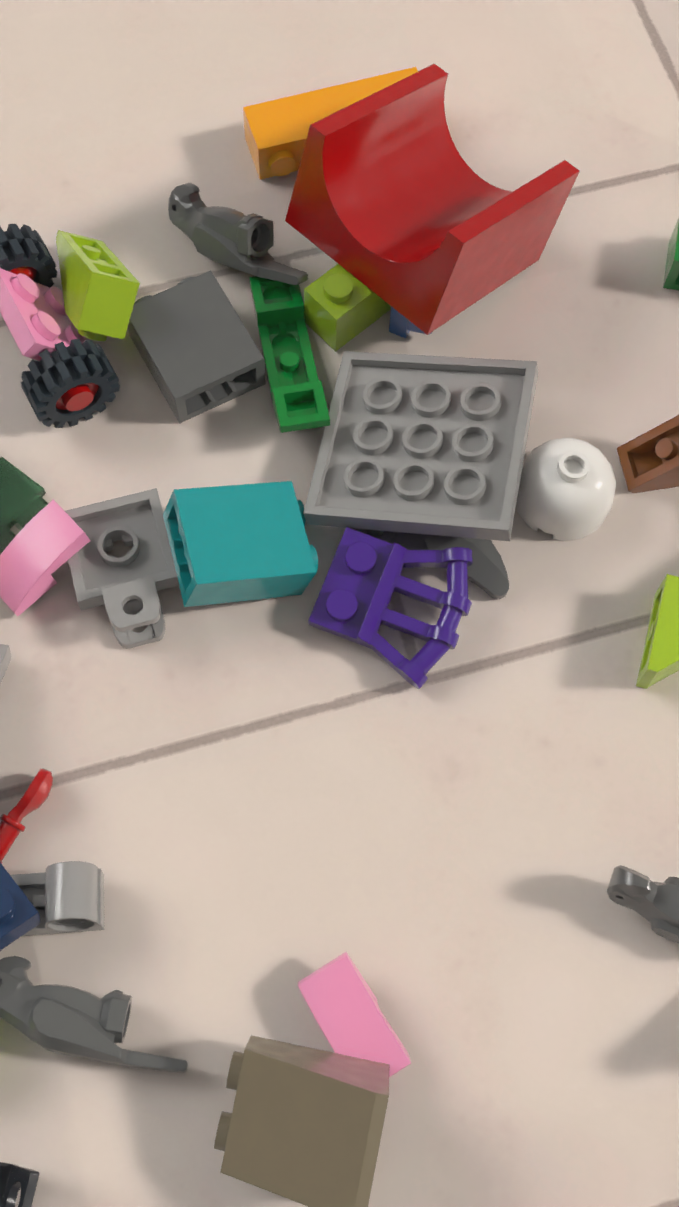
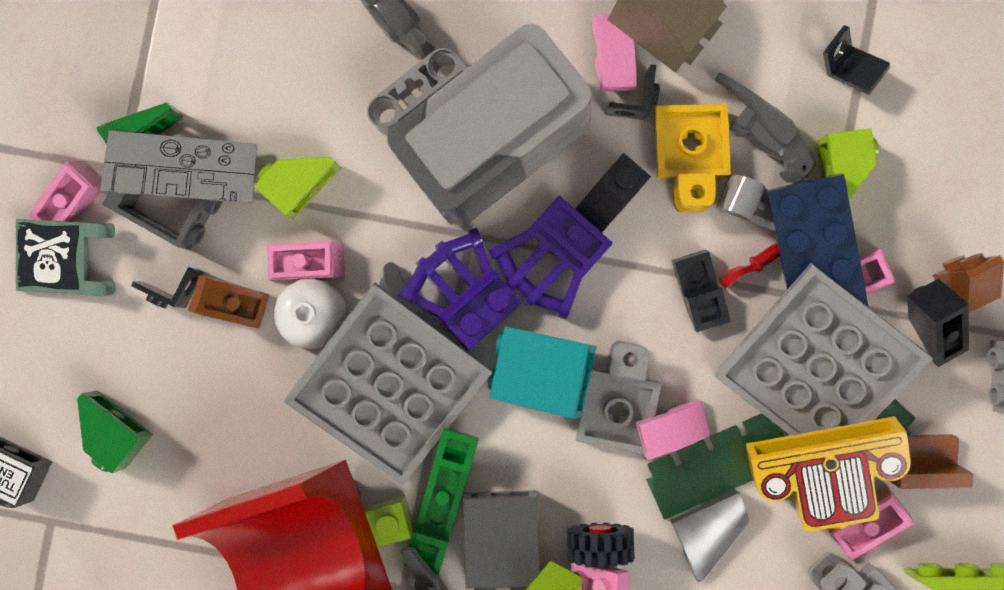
camera: 150 degrees left, 20 degrees up
(76, 751) = (700, 290): none -> black slope
(156, 910) = (692, 169): none -> yellow plate
(258, 818) = (613, 192): none -> black slope
(270, 980) = (650, 97): none -> black bracket
(289, 729) = (567, 237): none -> dark purple plate
(486, 803) = (484, 123): none -> light grey piece
(606, 549) = (306, 260): none -> bright pink slope

